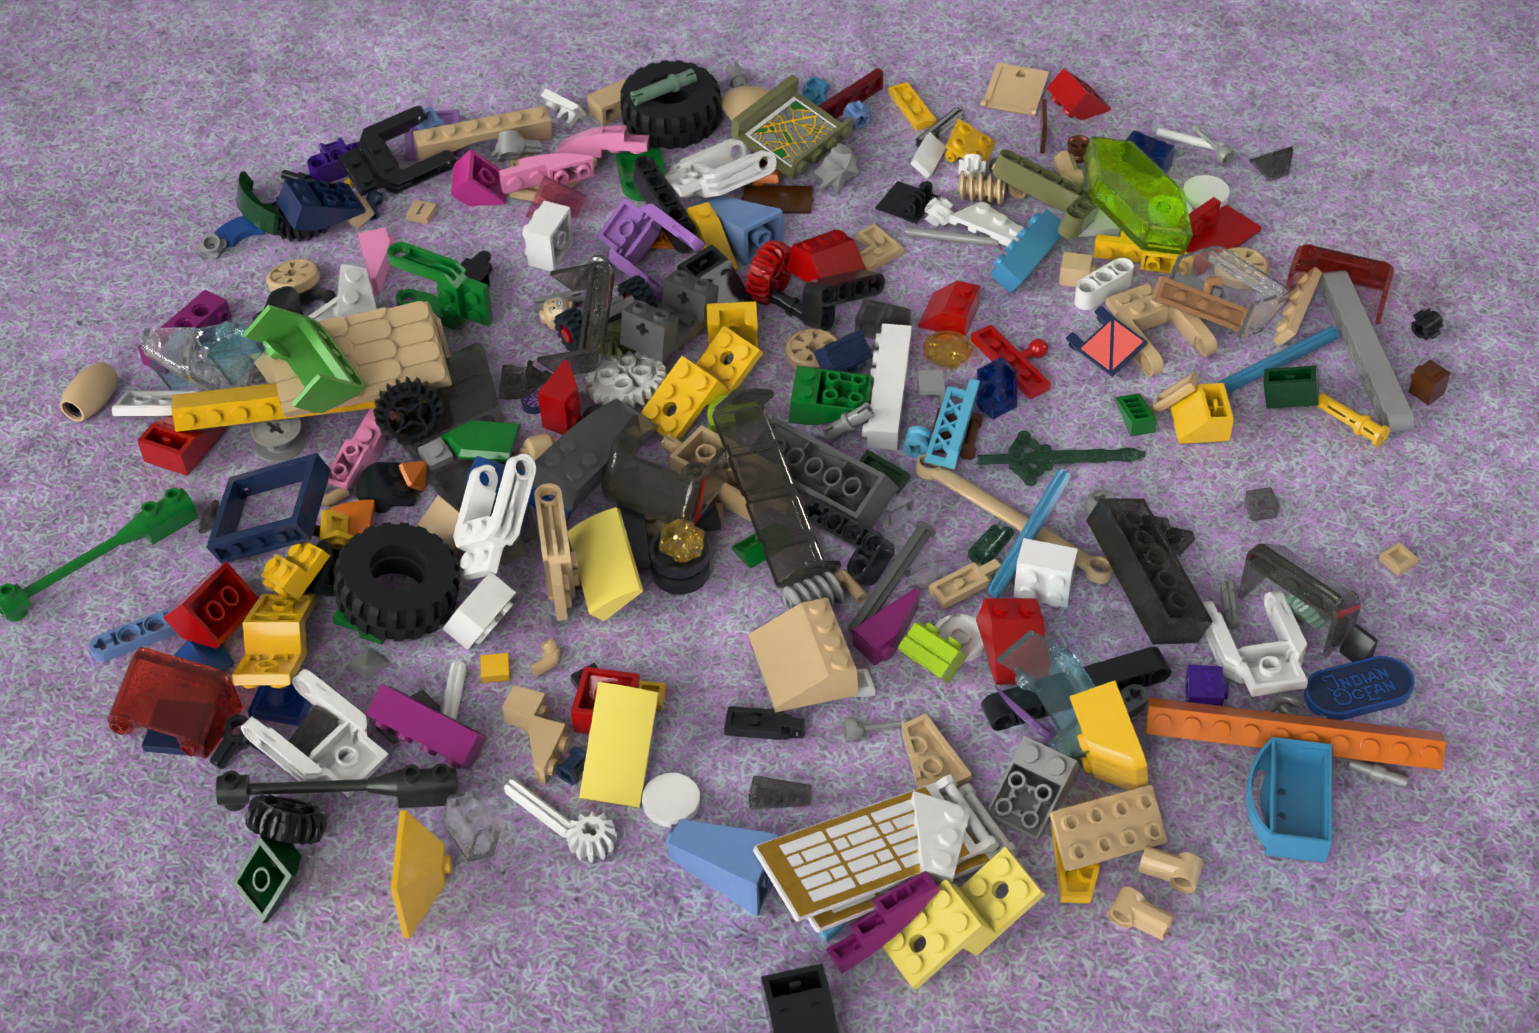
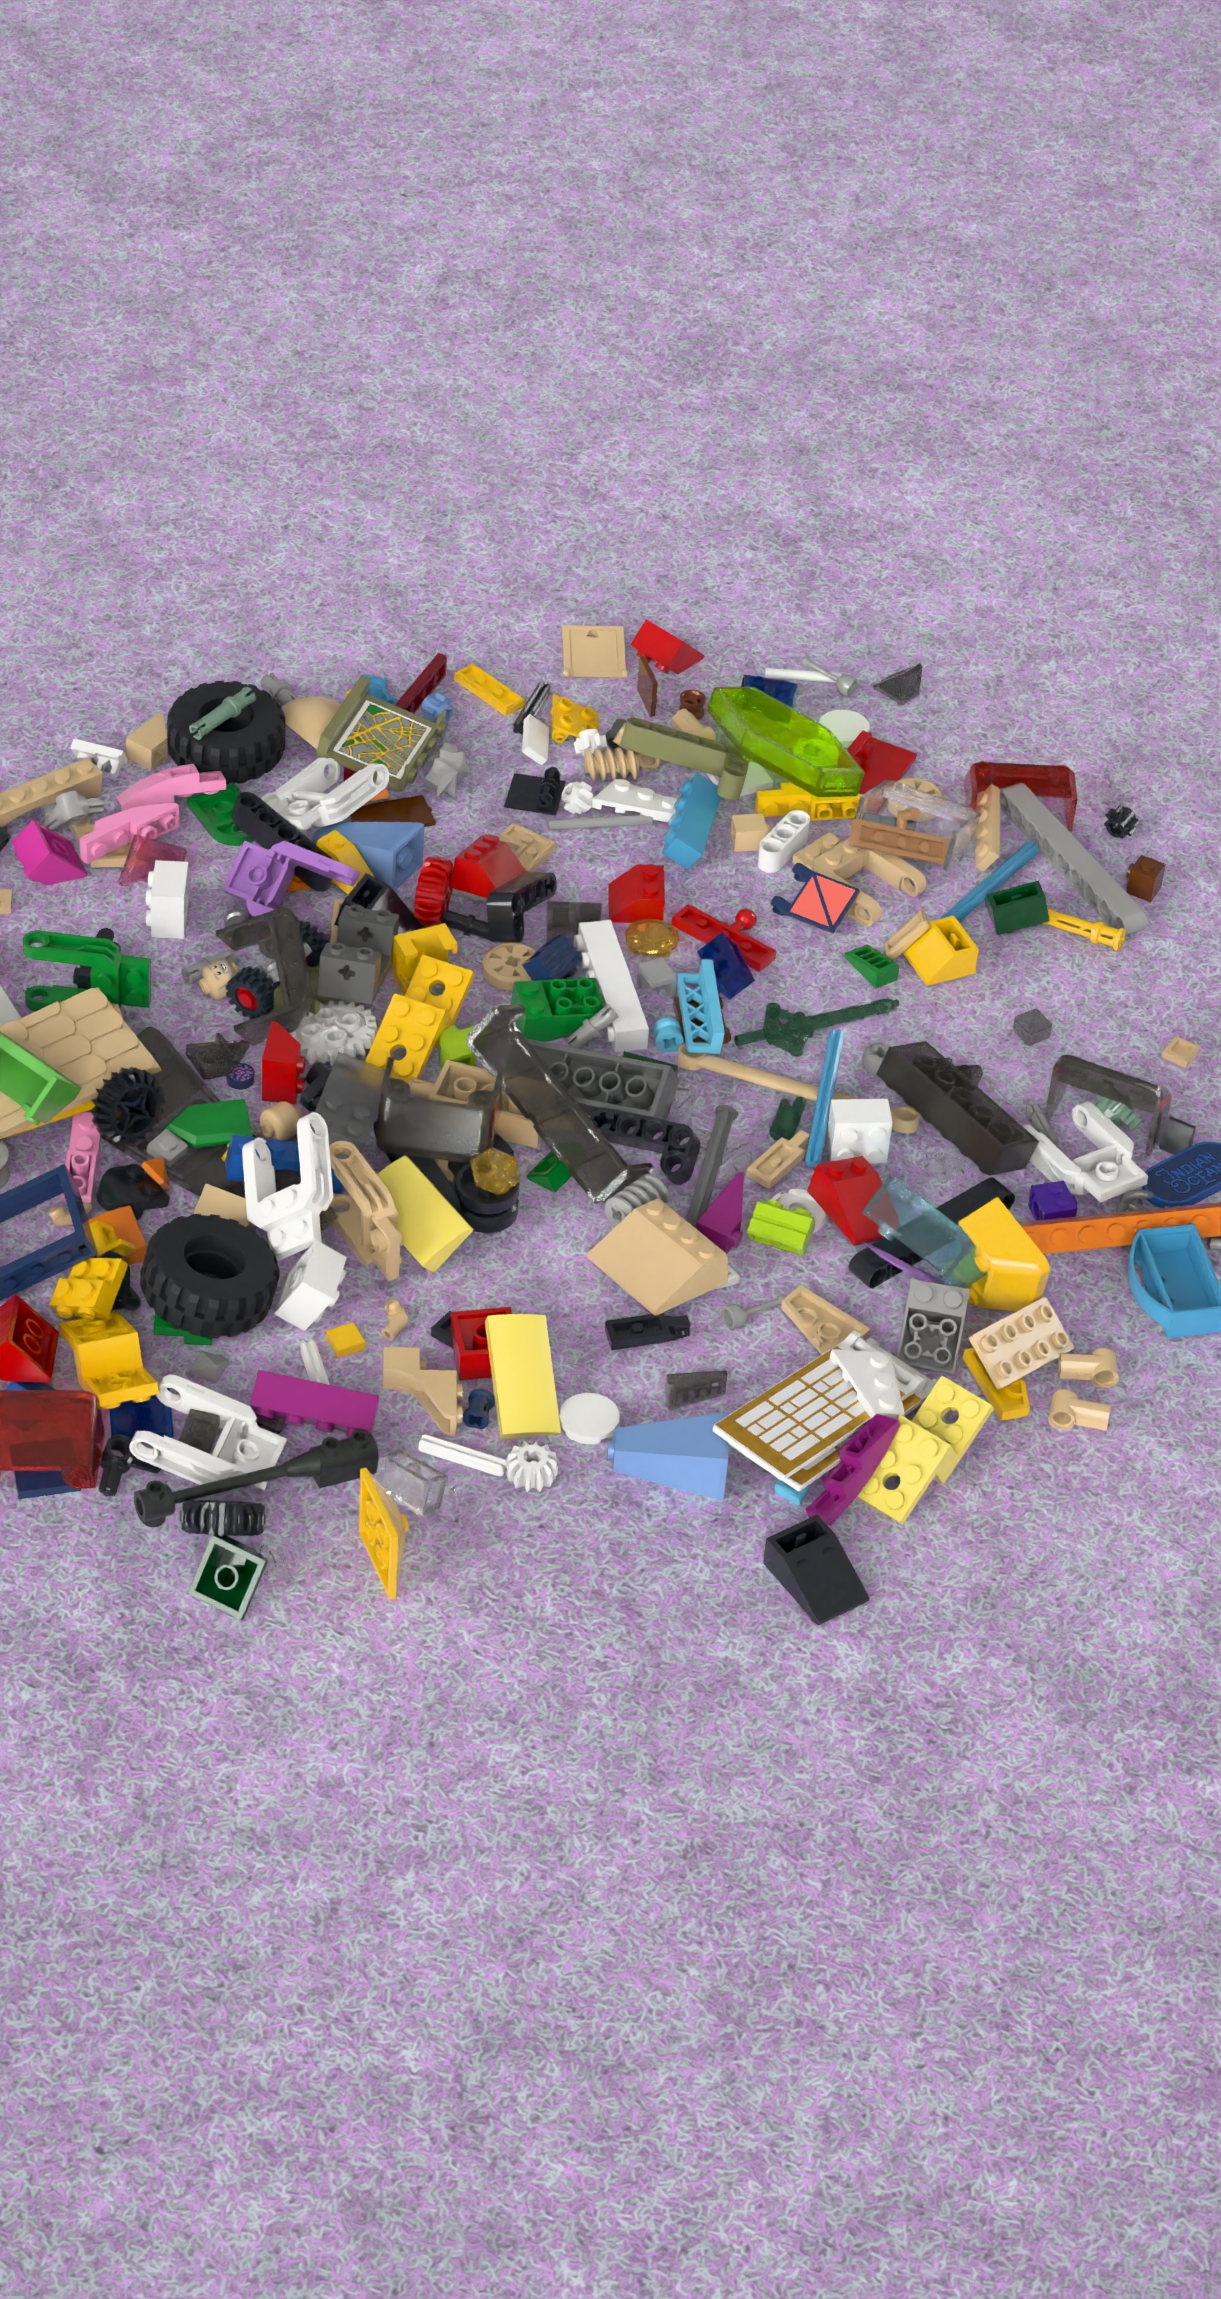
camera: 25 degrees left, 5 degrees down
(851, 585) = (675, 1190): tan arm -> none

